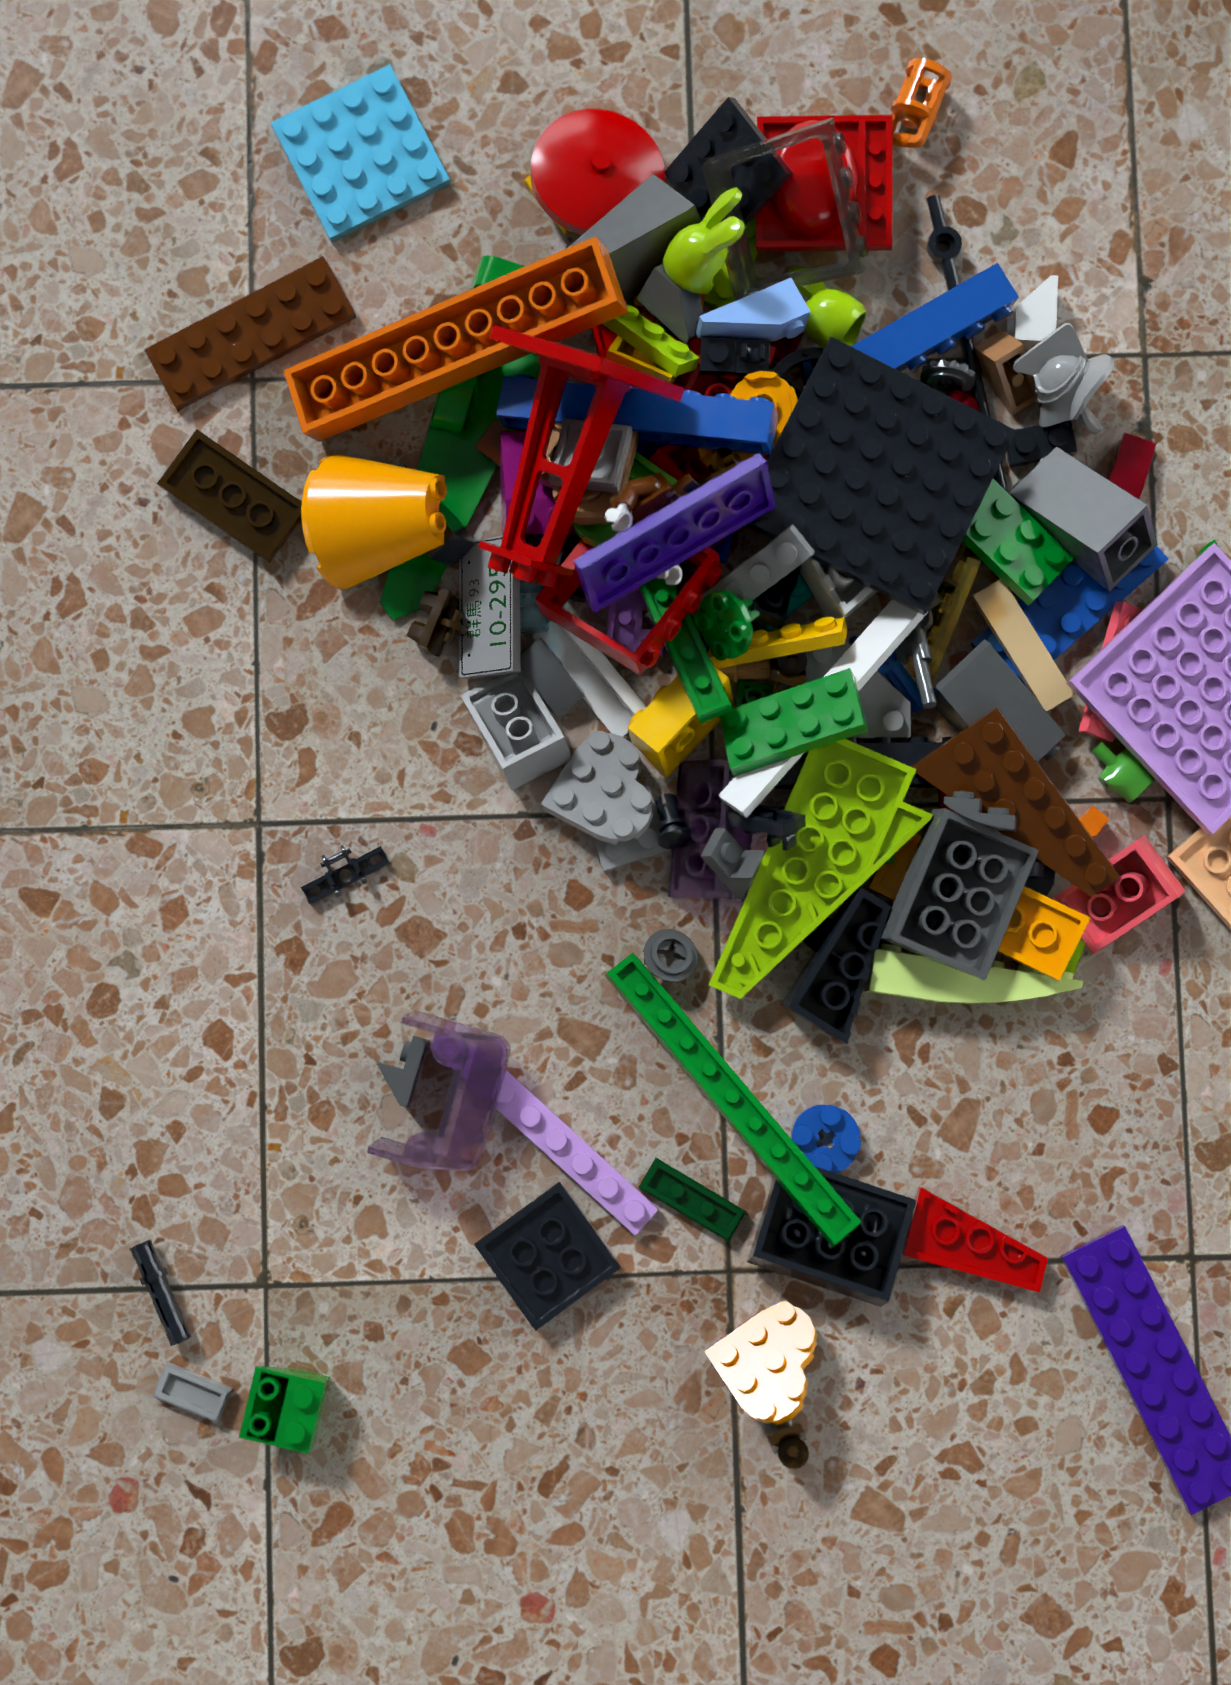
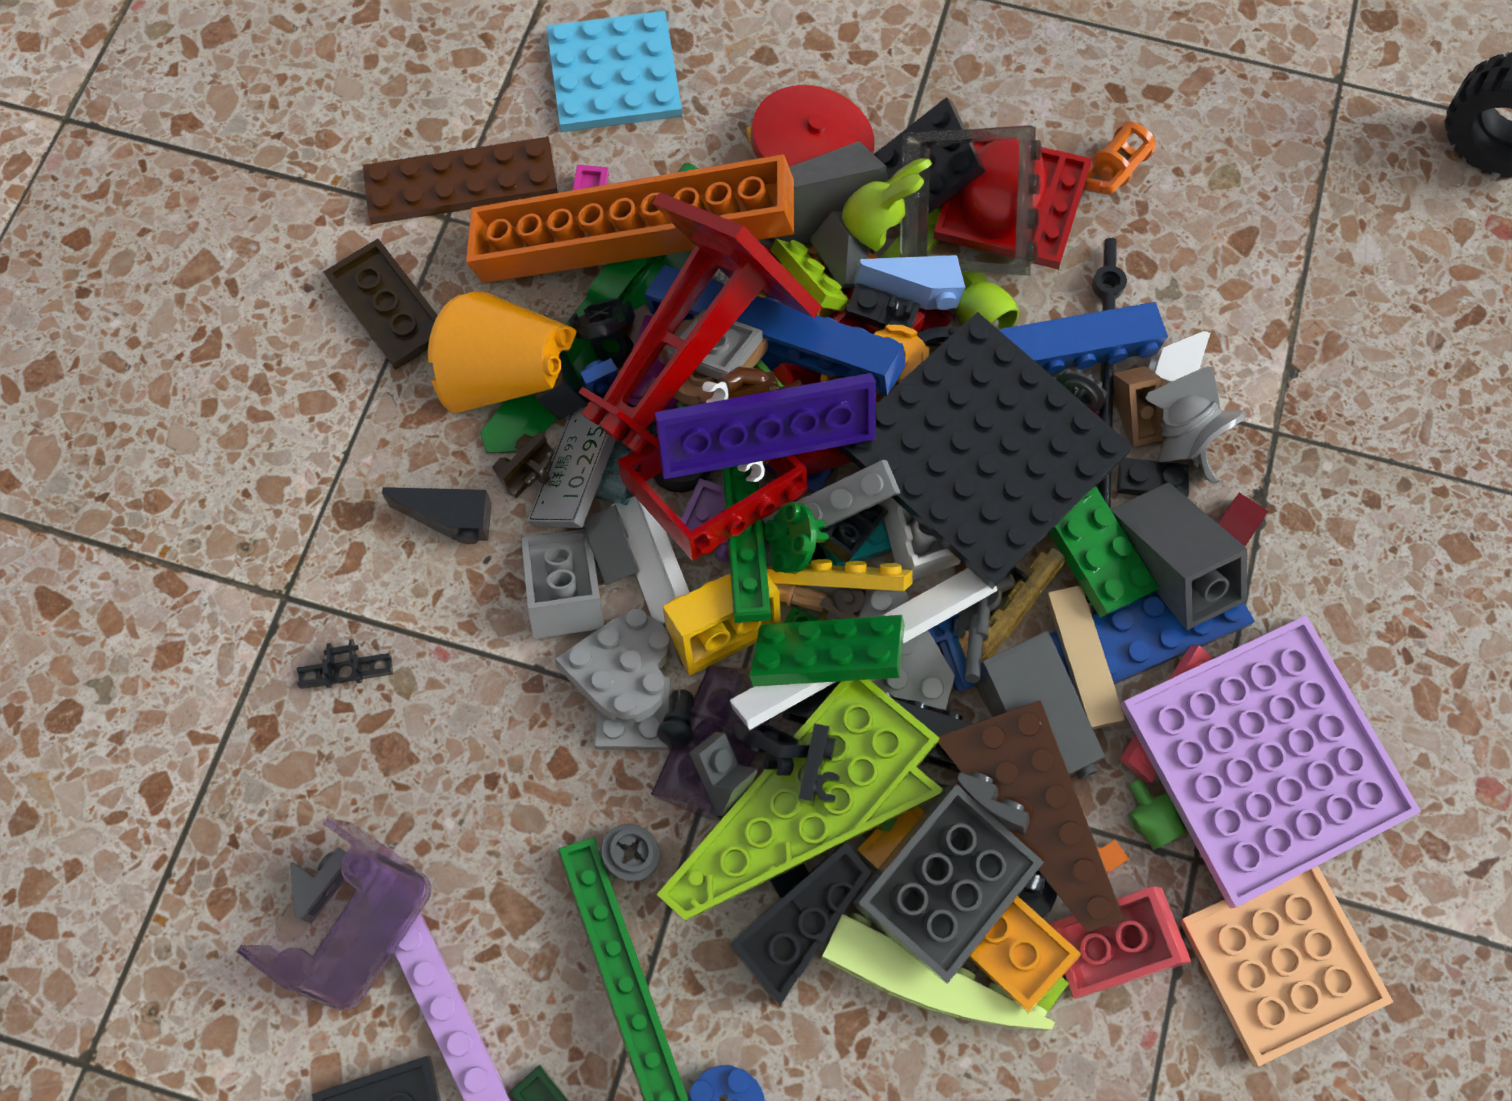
camera: 20 degrees right, 15 degrees down
(384, 693) = (453, 512): none -> black slope
(387, 295) = (590, 176): none -> dark pink plate
(463, 454) = (603, 322): none -> black tile
(481, 516) = (599, 377): none -> blue plate
(814, 815) = (820, 749): none -> black plate

